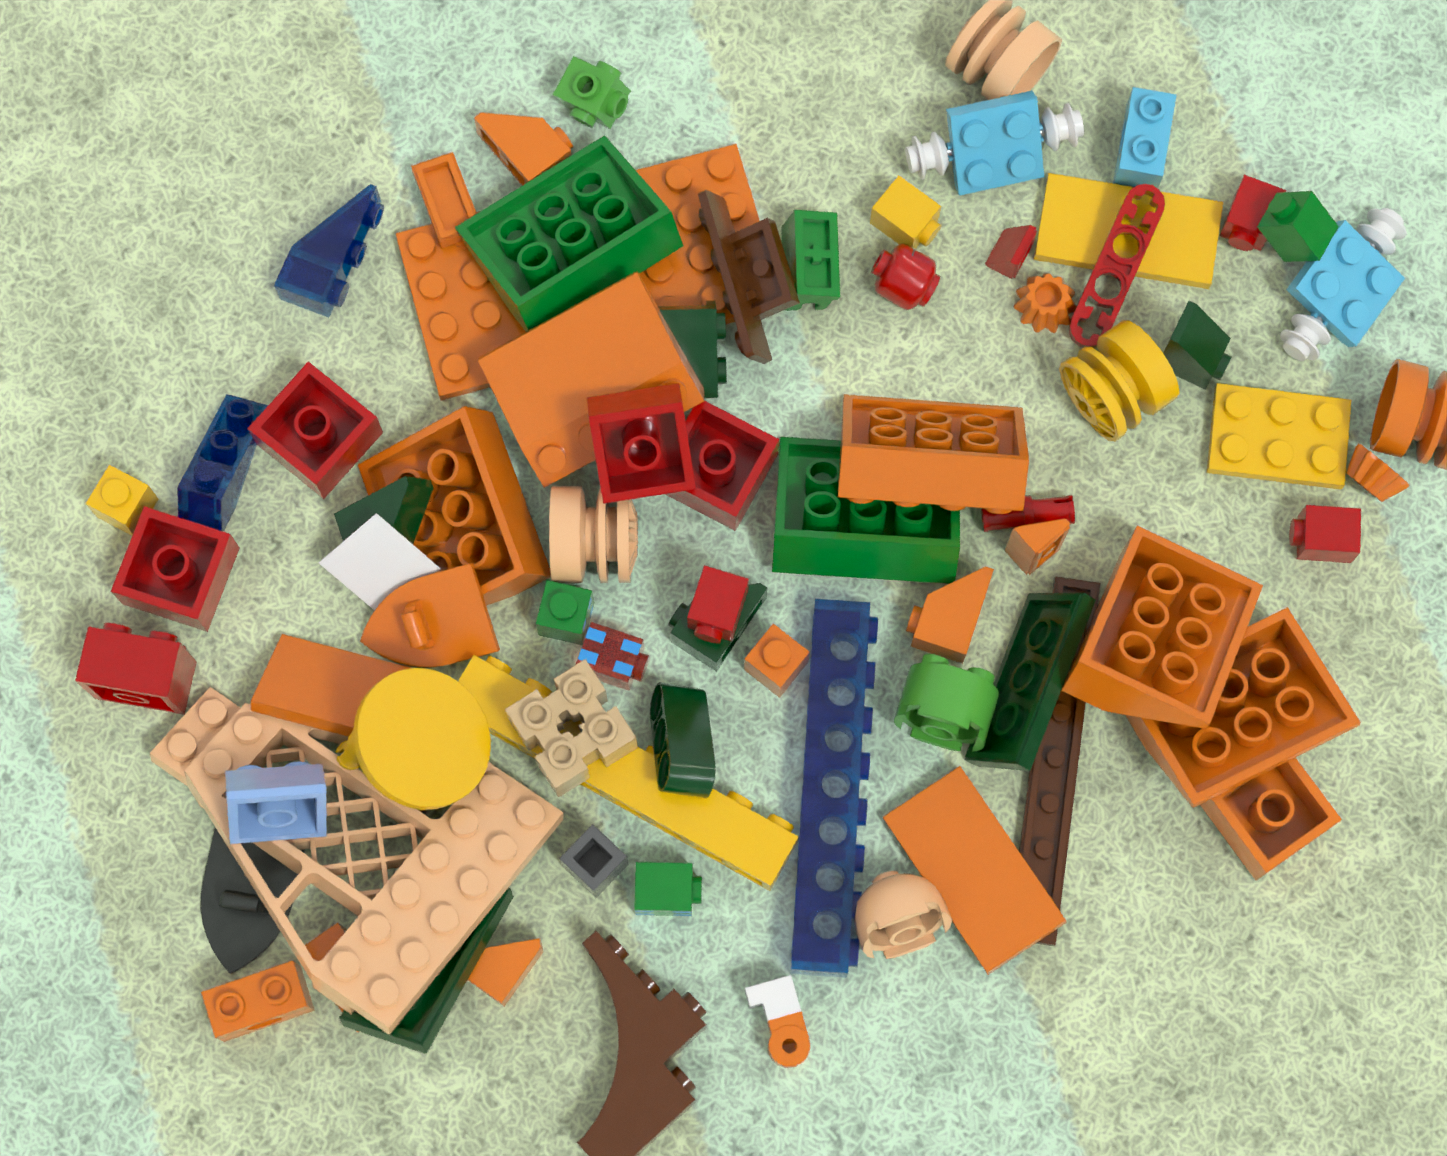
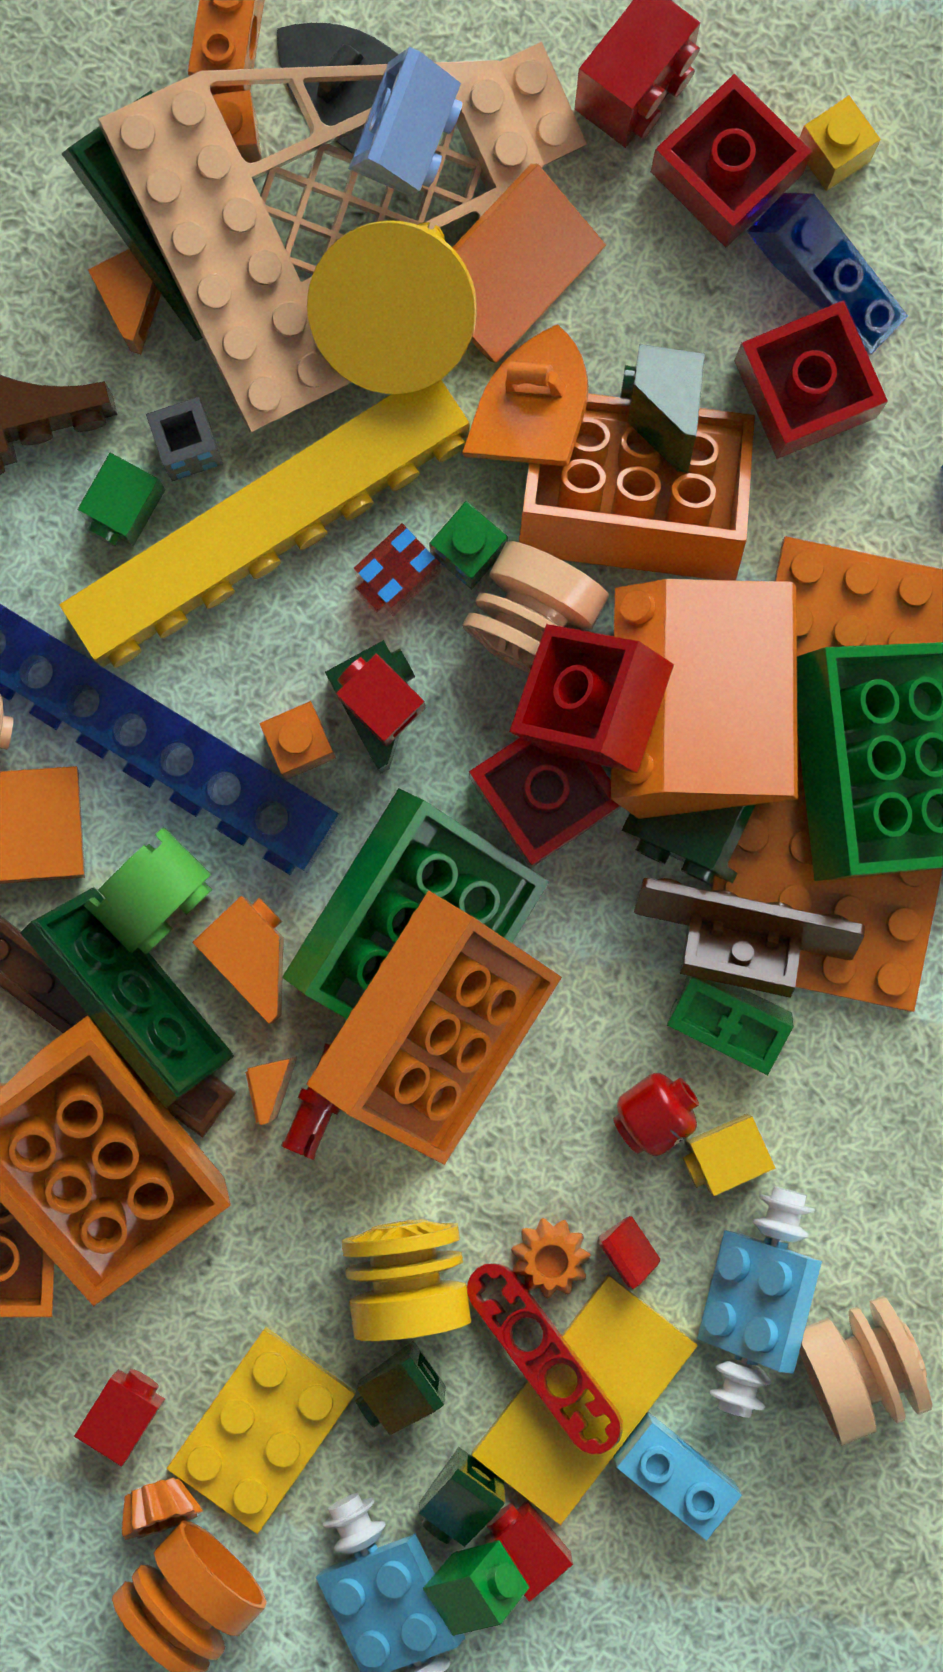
camera: 120 degrees right, 10 degrees up
(376, 561) = (624, 370): white sticker -> none
(576, 699) = (300, 451): tan brick -> none
(682, 740) = (258, 590): dark green beam -> none
(1244, 270) = (461, 1499): none -> dark green slope

